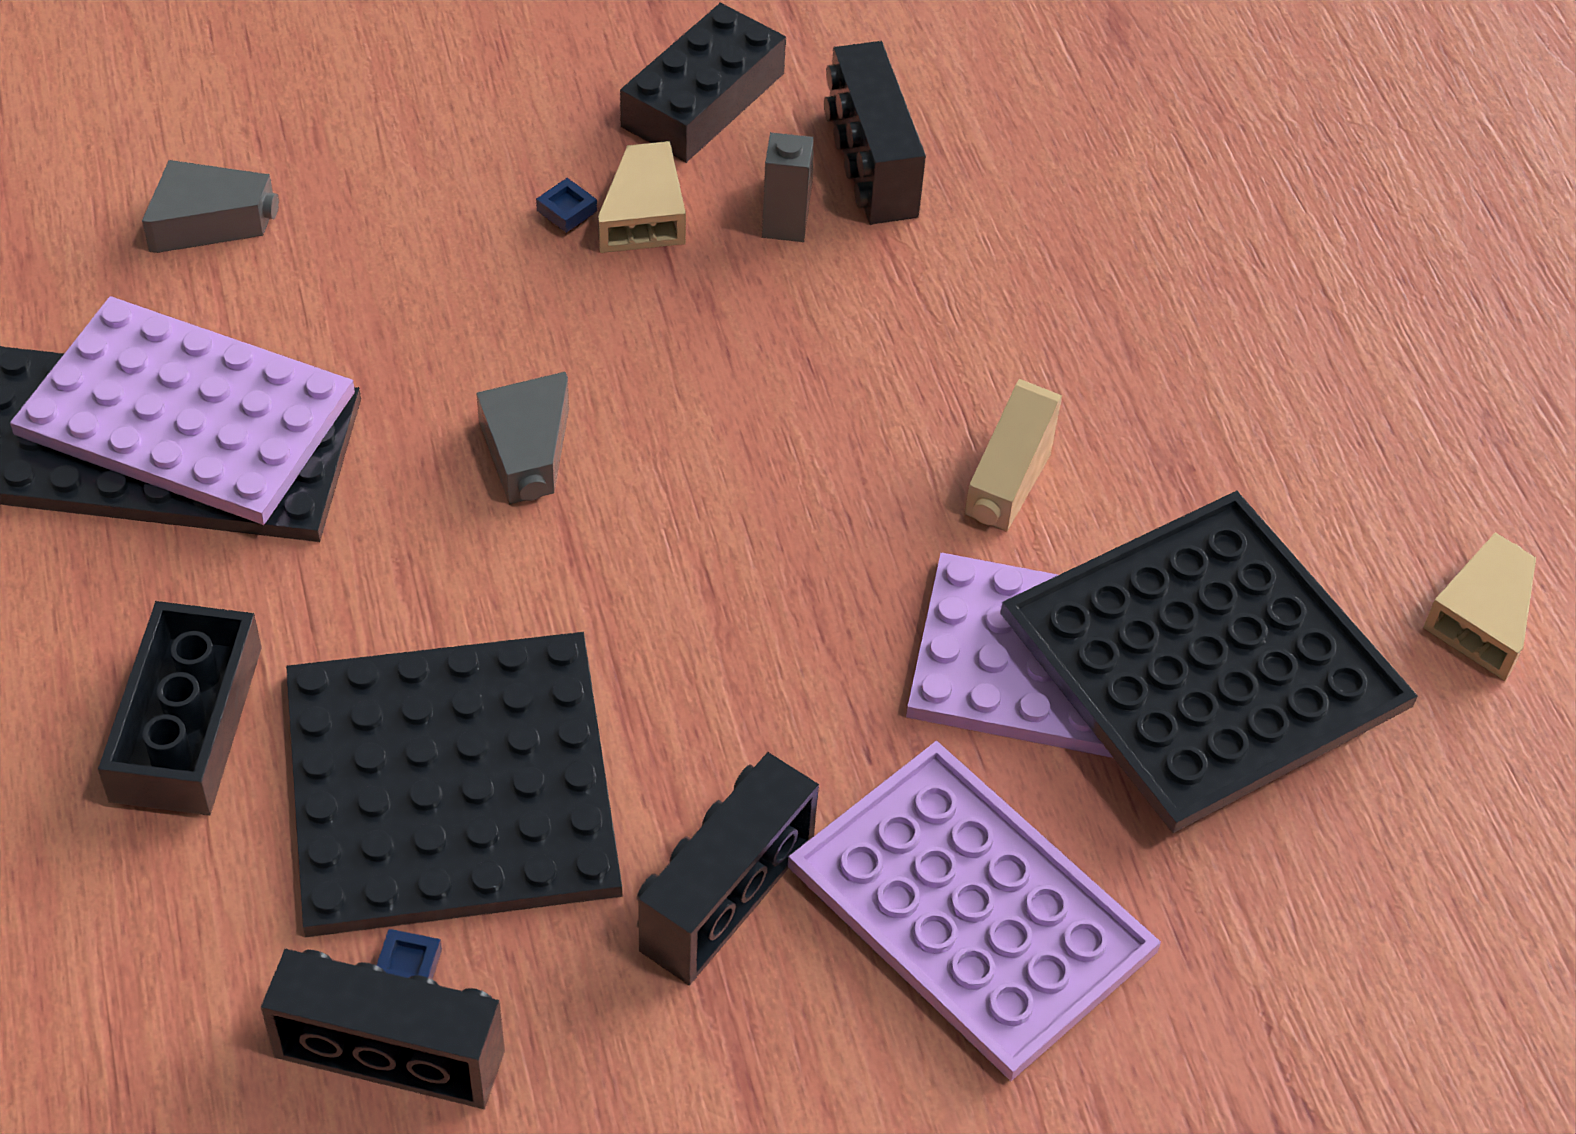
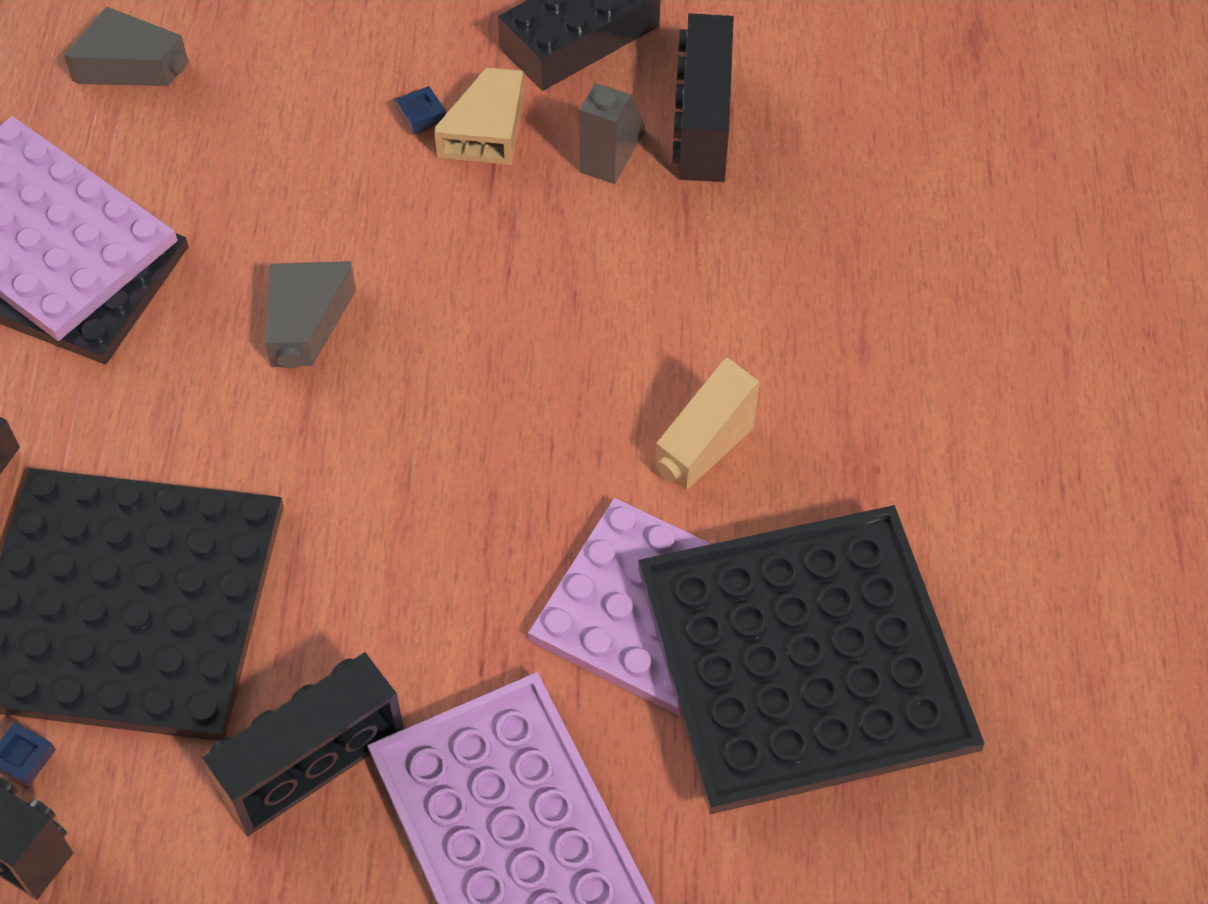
camera: 20 degrees right, 5 degrees up
(1487, 606) = (1095, 667): tan slope -> none

